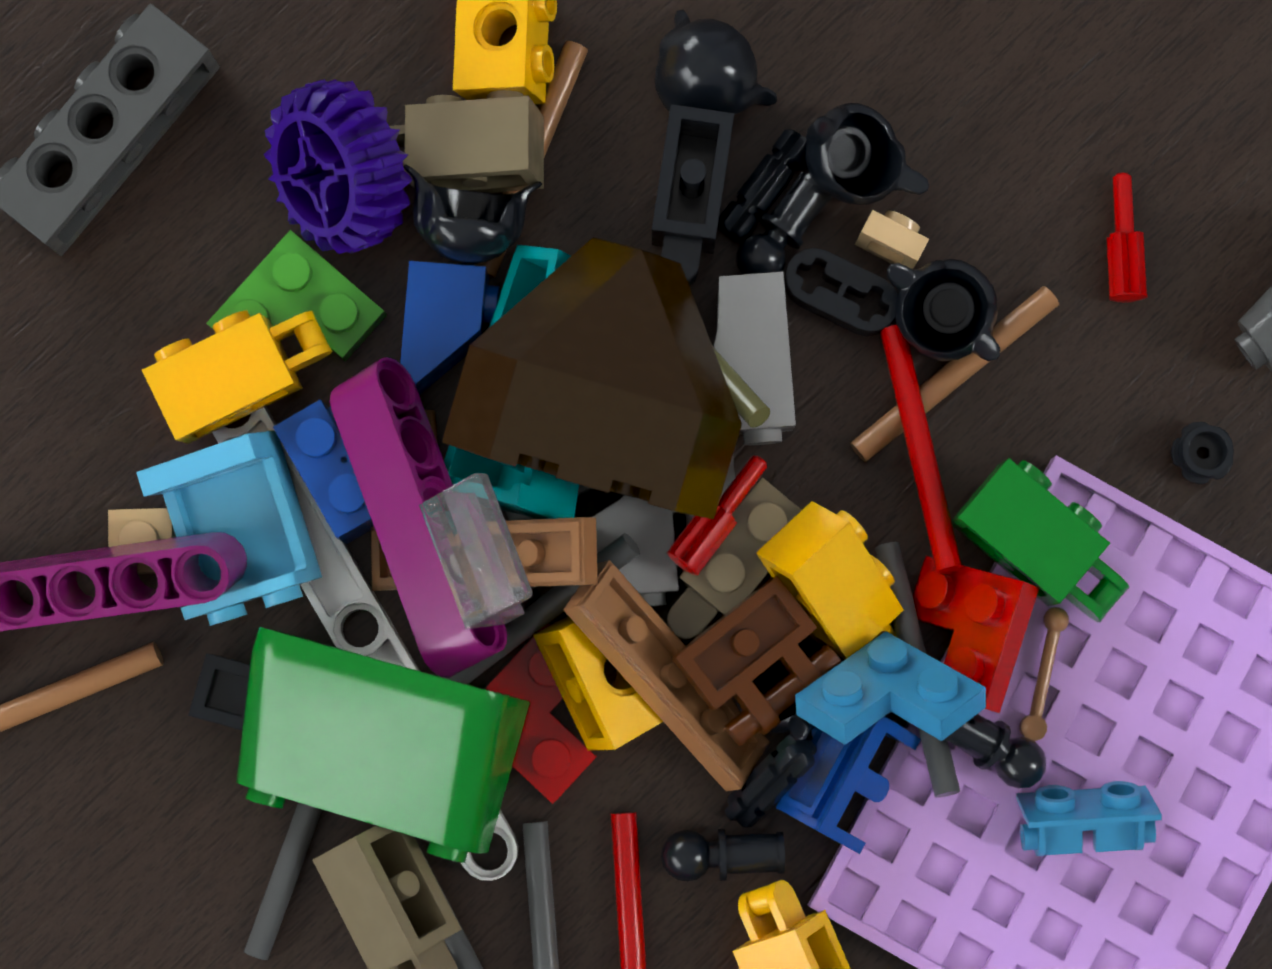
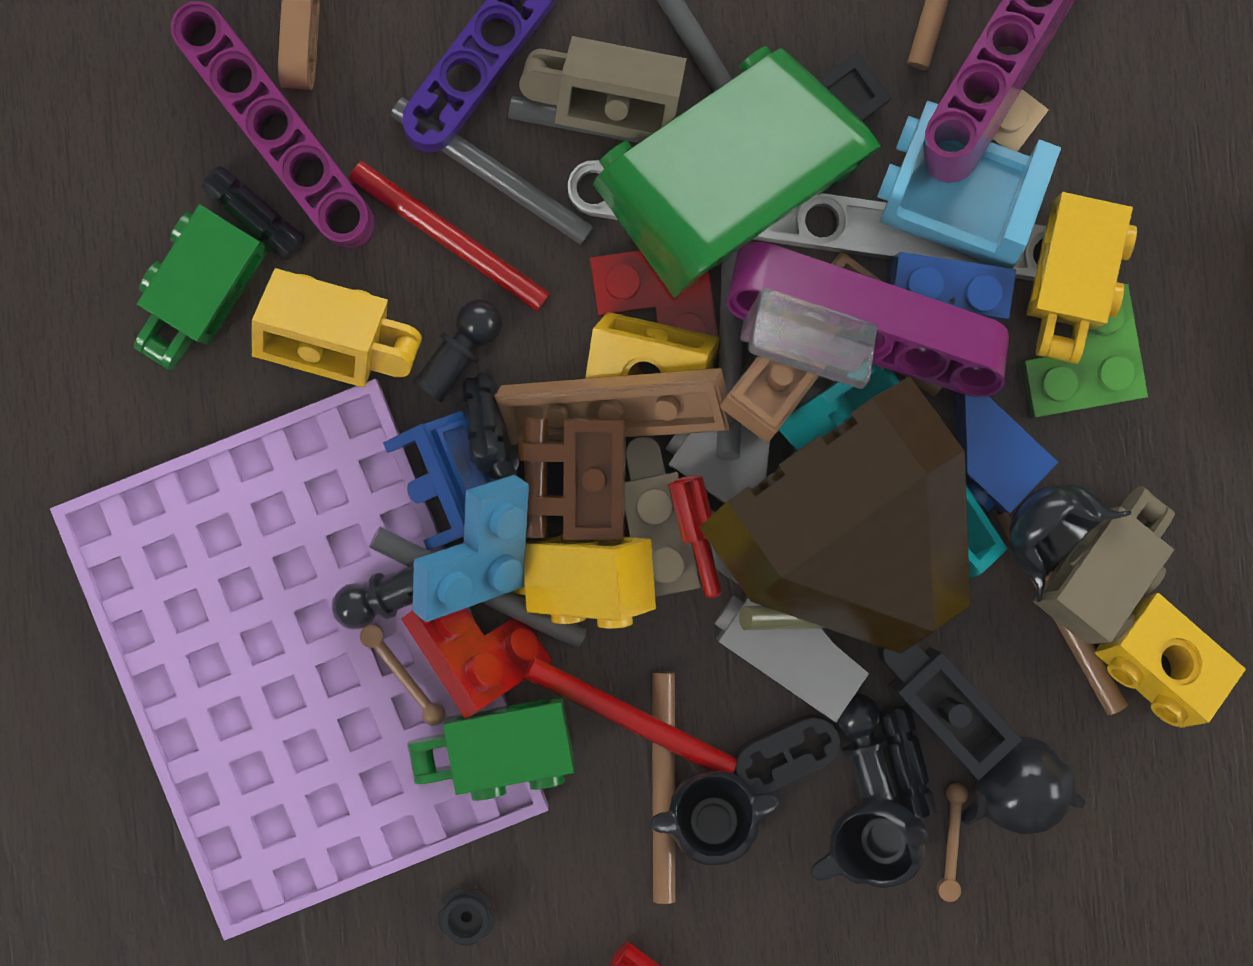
camera: 130 degrees right, 5 degrees up
(337, 166) = (1169, 465): dark purple gear -> none
(841, 67) = (948, 887): none -> medium nougat hinge
(892, 238) = (796, 821): tan plate -> none
(1117, 813) = (266, 645): dark azure hinge -> none

